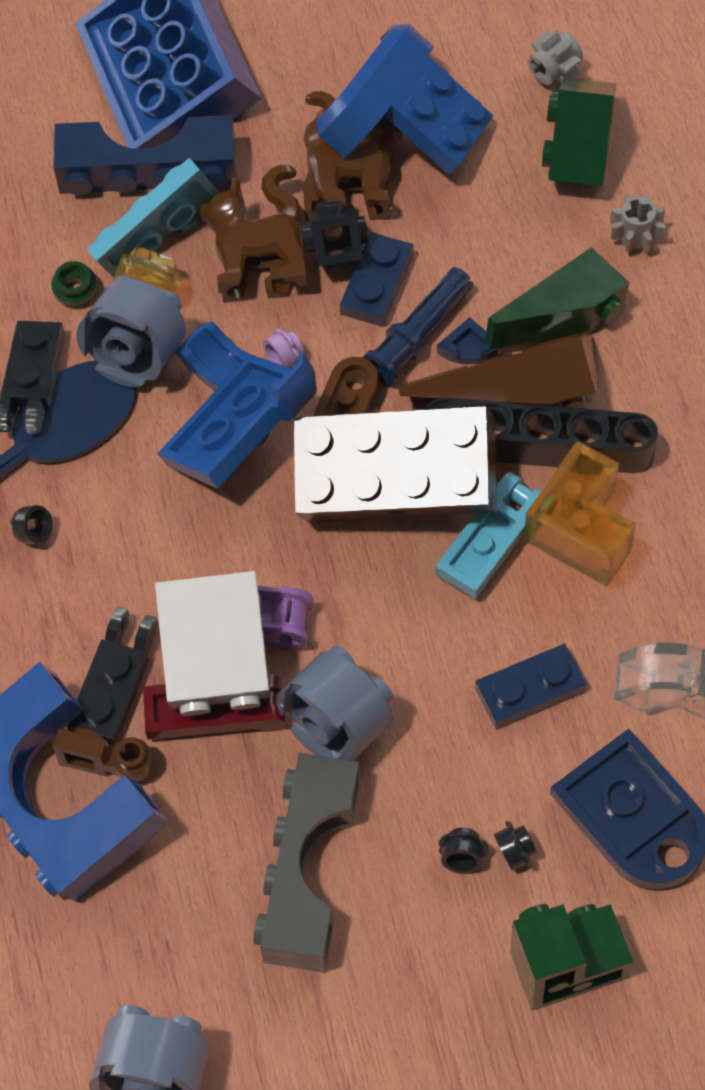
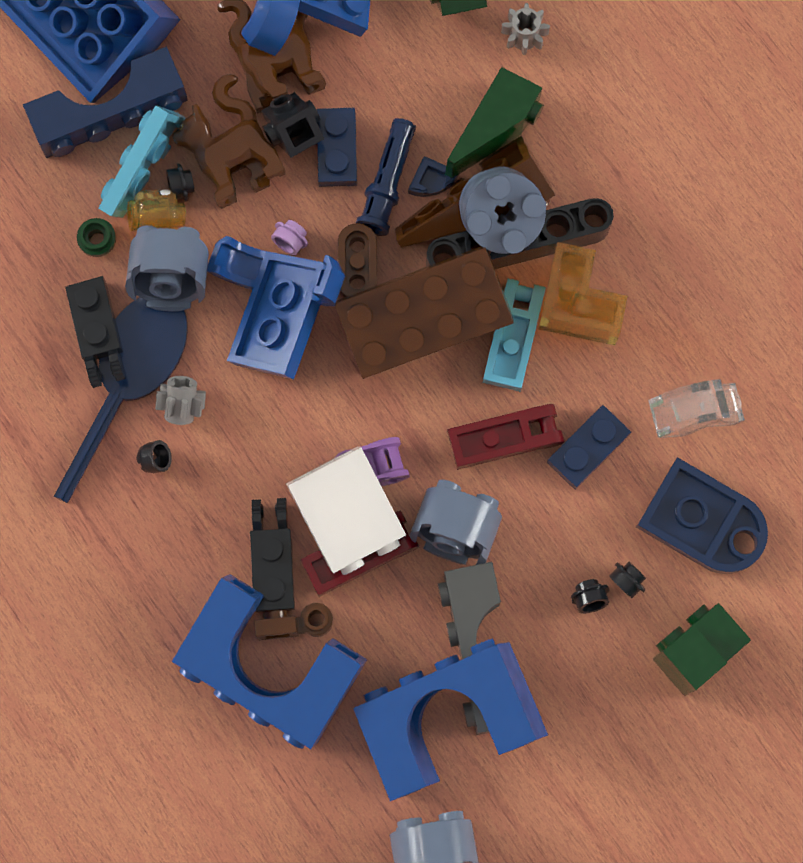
camera: 25 degrees left, 15 degrees up
(86, 474) = (180, 400): none -> light grey gear
(173, 894) = (394, 718): none -> blue arch
(188, 258) = (180, 182): none -> black plate
(436, 638) = (504, 436): none -> dark red plate
(523, 350) = (505, 232): none -> sand blue brick

